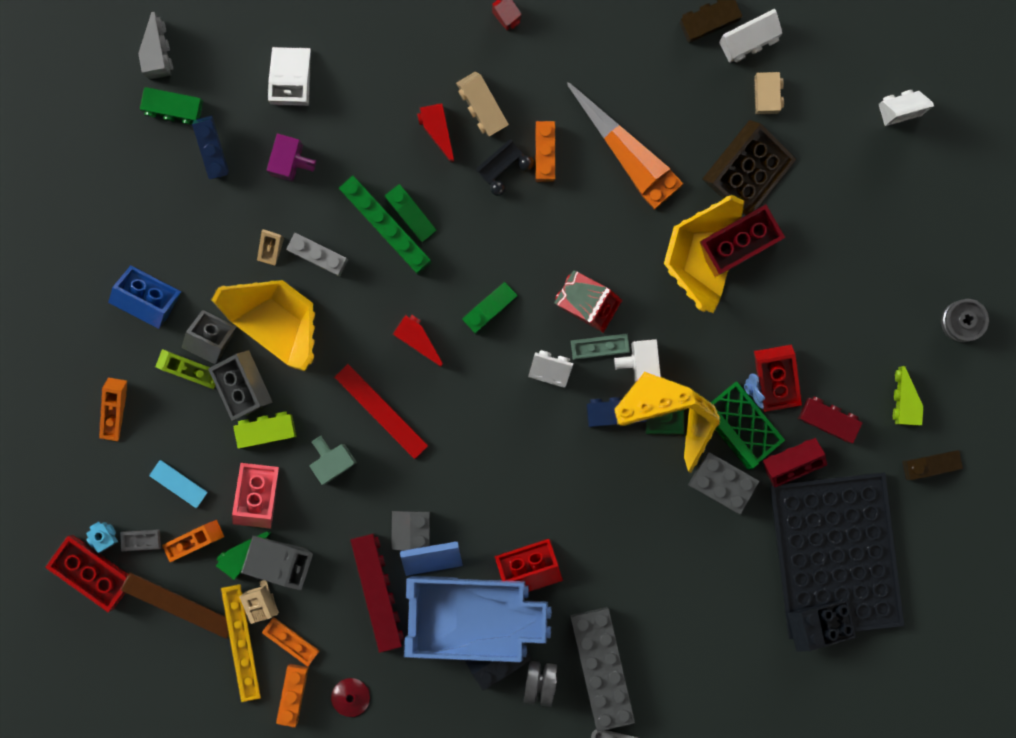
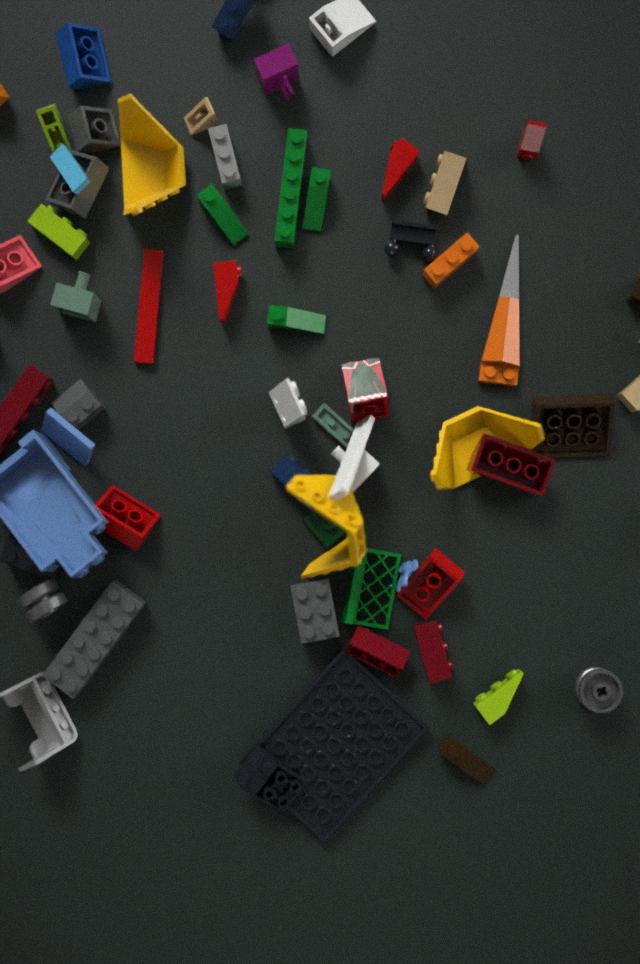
camera: 50 degrees right, 0 degrees up
(227, 381) = (70, 169): none -> medium azure tile
(359, 295) = (222, 214): none -> green slope
(634, 356) = (351, 458): none -> white tile

